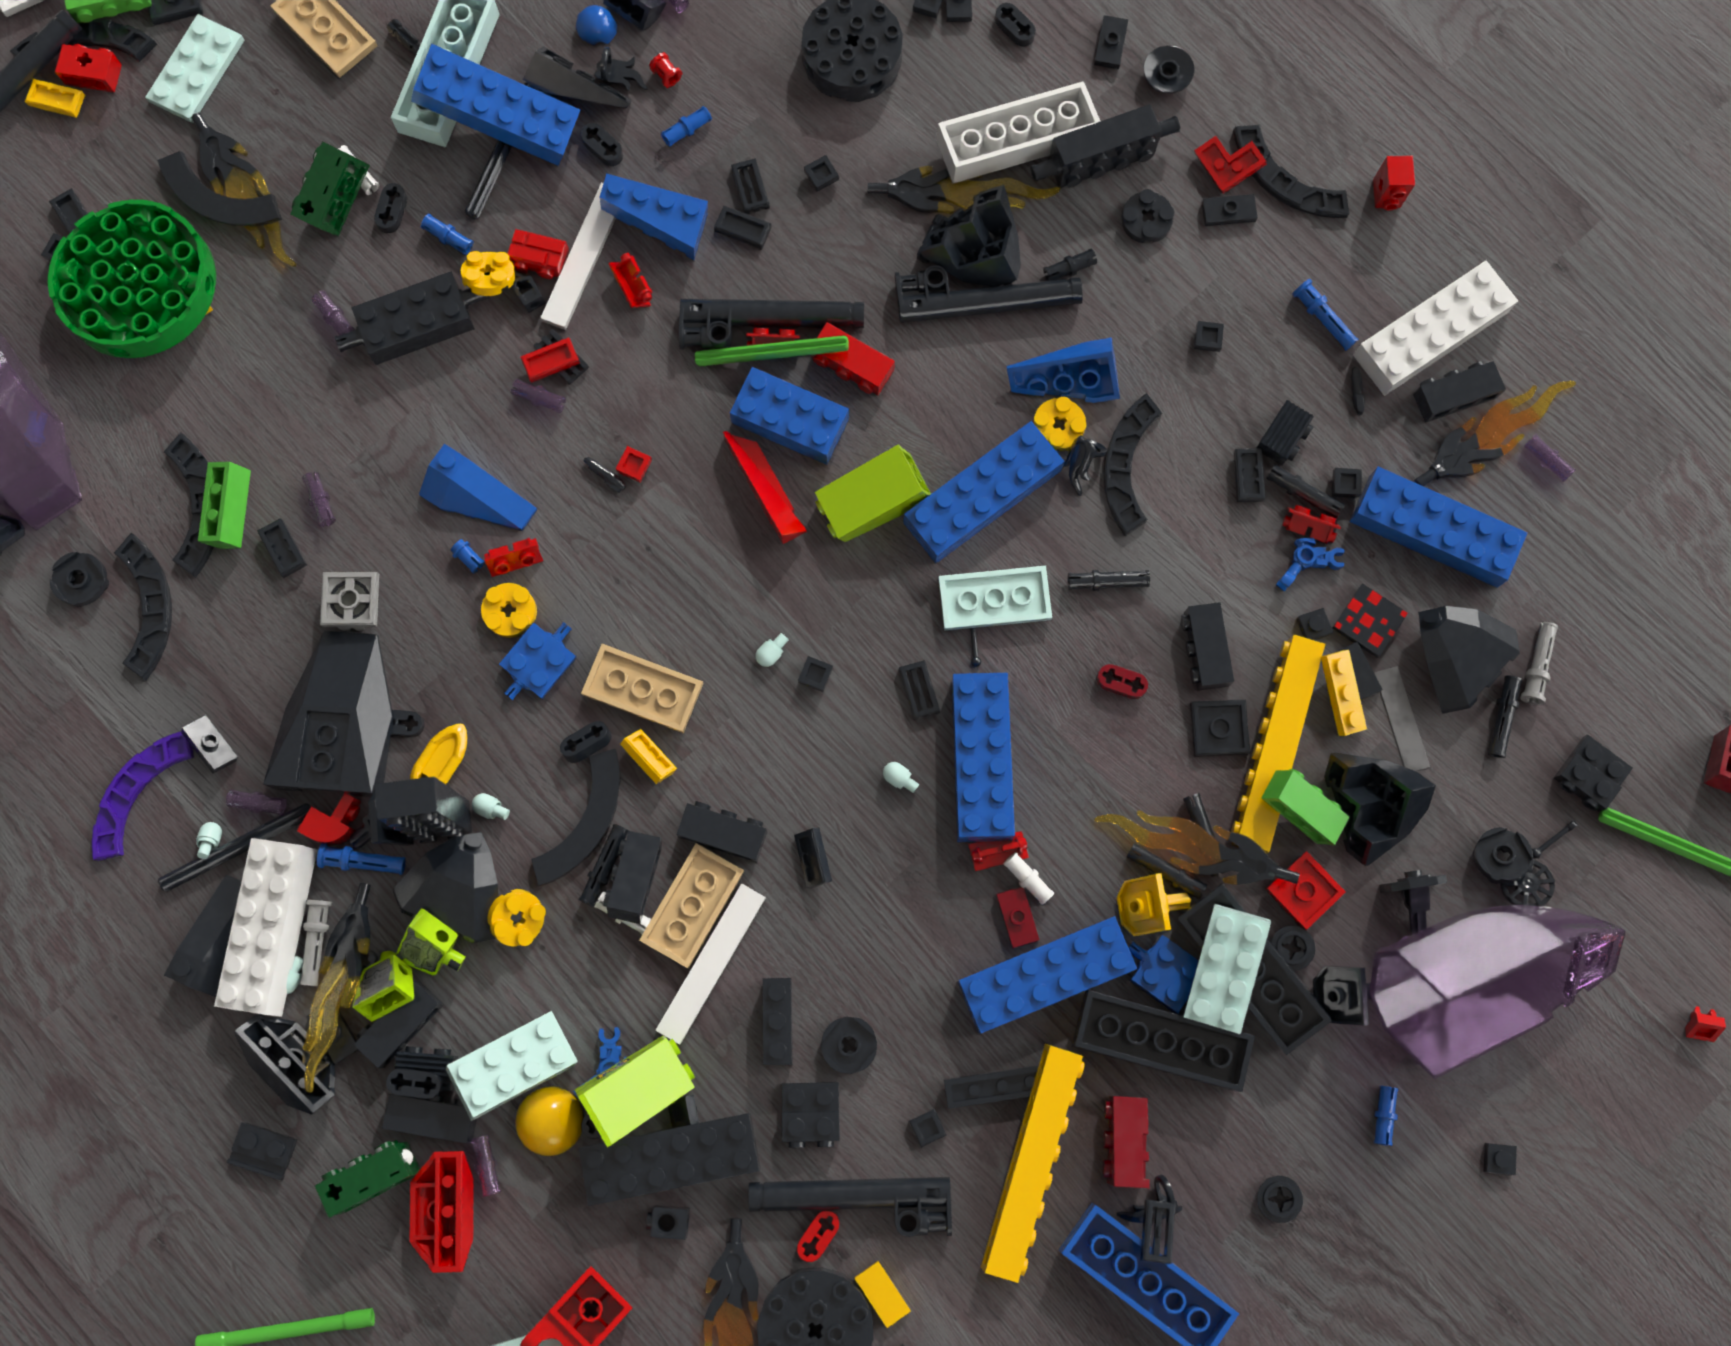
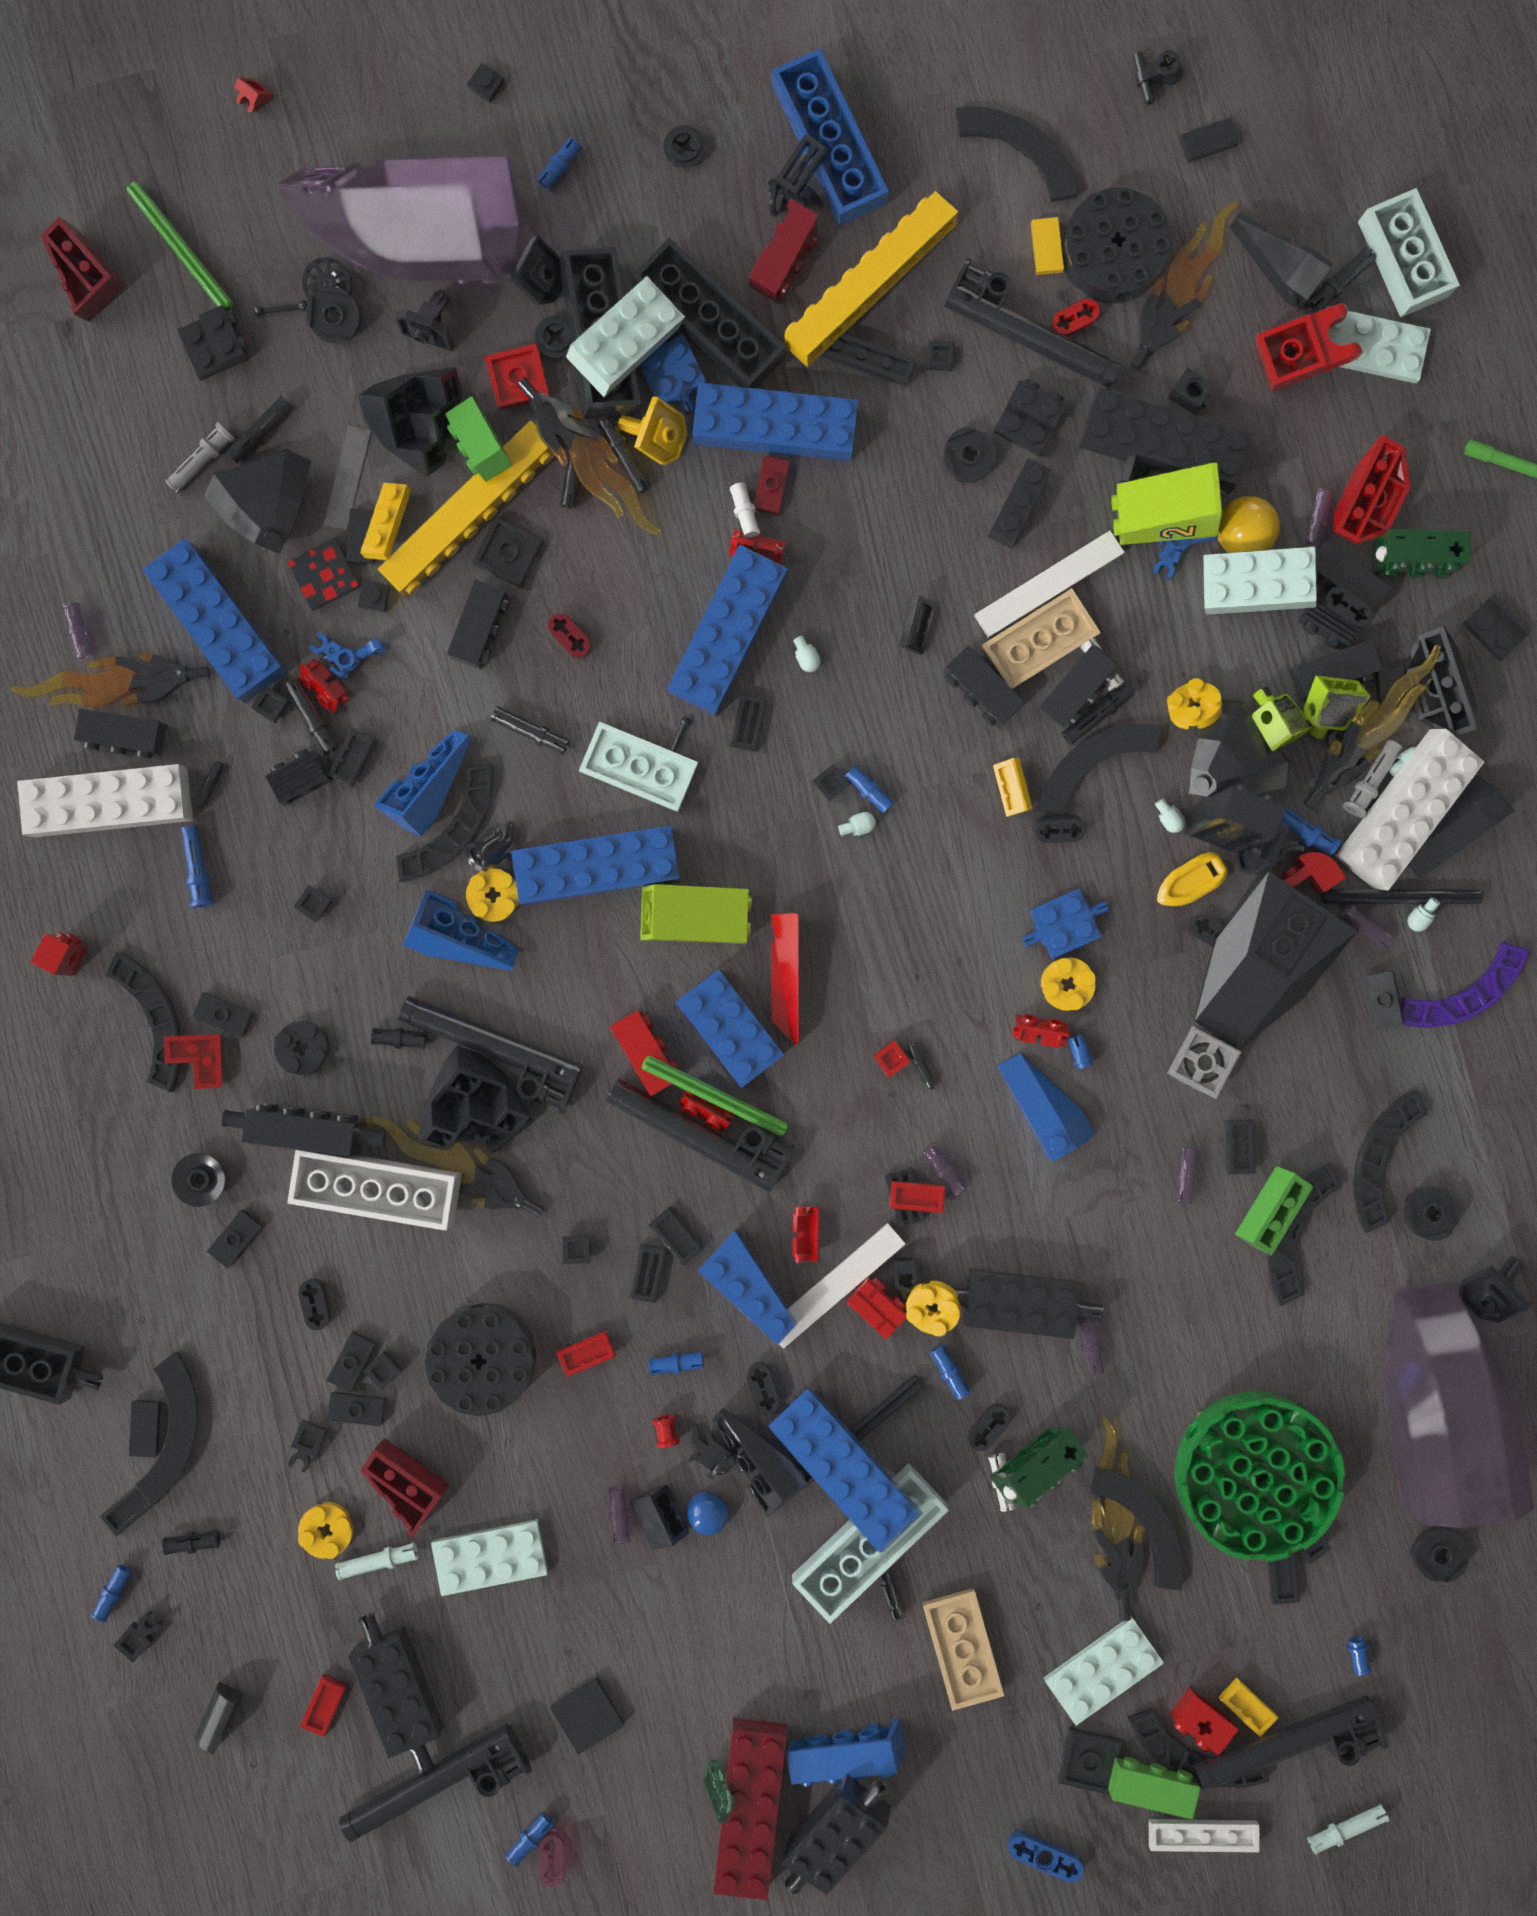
camera: 150 degrees left, 10 degrees up
(642, 688) = (987, 850): tan plate -> none
(766, 97) = (586, 1353): none -> red plate
(778, 687) = (869, 789): none -> blue pin
(1171, 473) = (420, 796): none -> blue wedge

